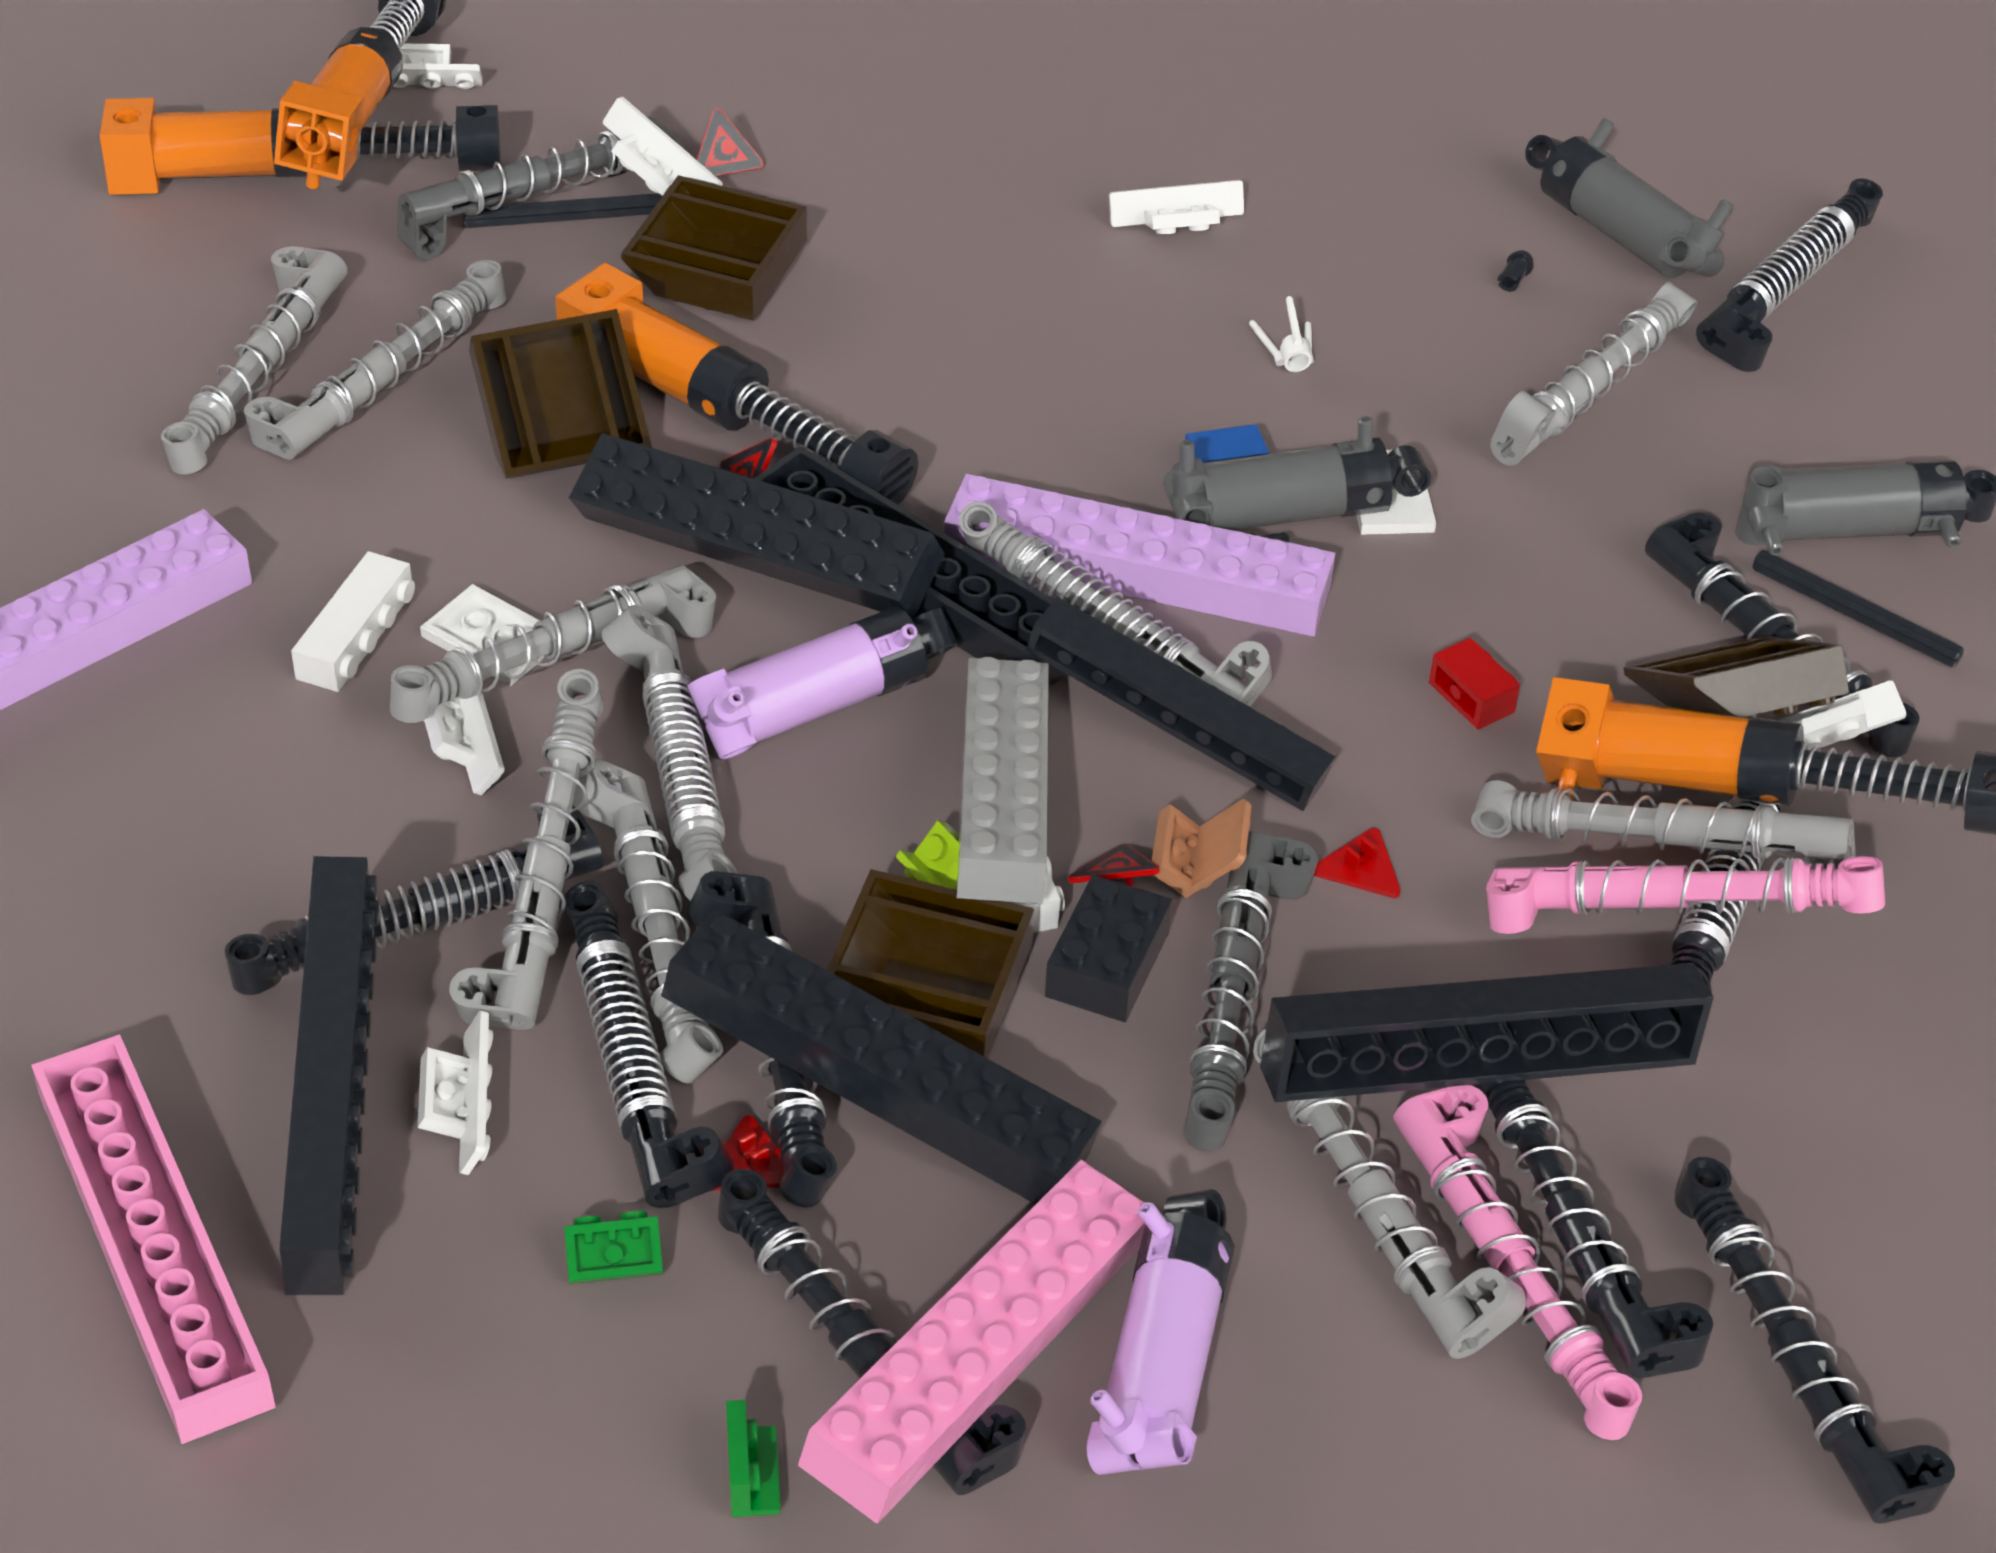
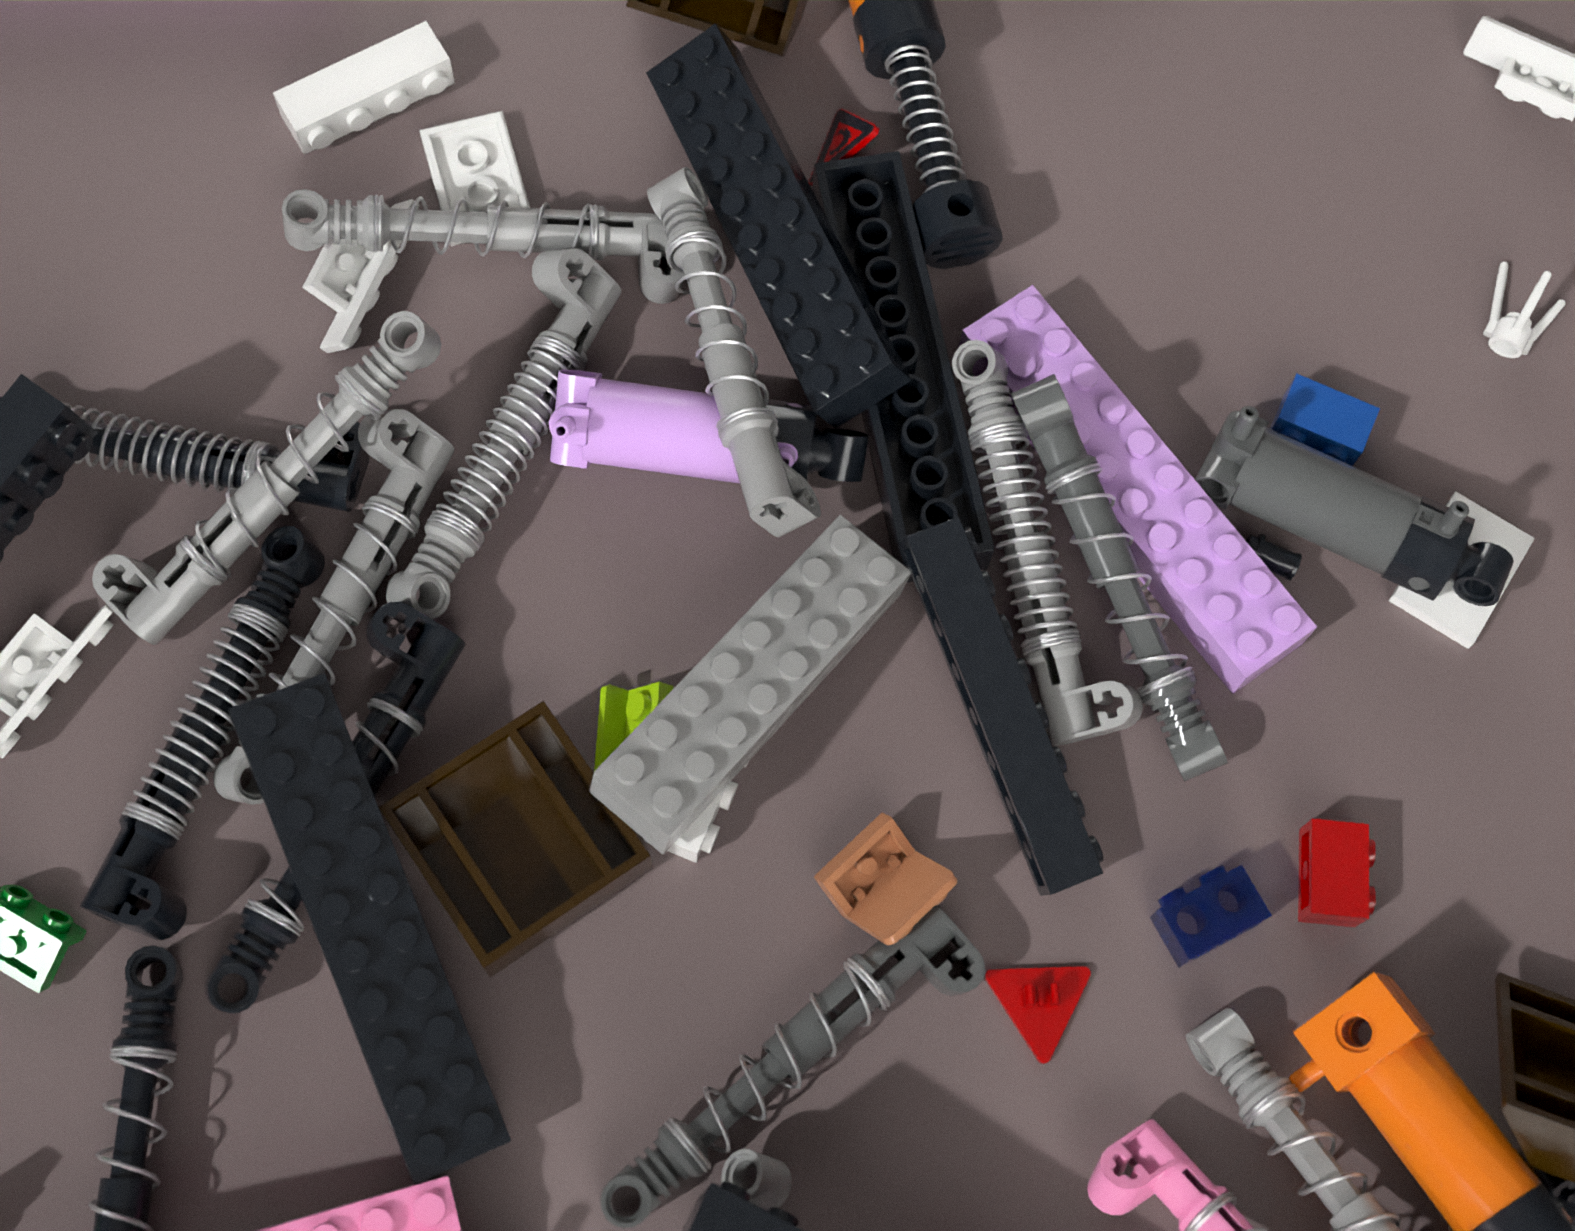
camera: 35 degrees right, 25 degrees up
(755, 1150) = (217, 916): red piece -> none
(869, 623) = (772, 490): none -> light grey piece
(1056, 520) = (1112, 565): none -> dark grey piece
(1108, 948) = (705, 932): black brick -> none
(1116, 864) = (791, 843): piece -> none
(1420, 749) = (1213, 922): none -> clear blue brick

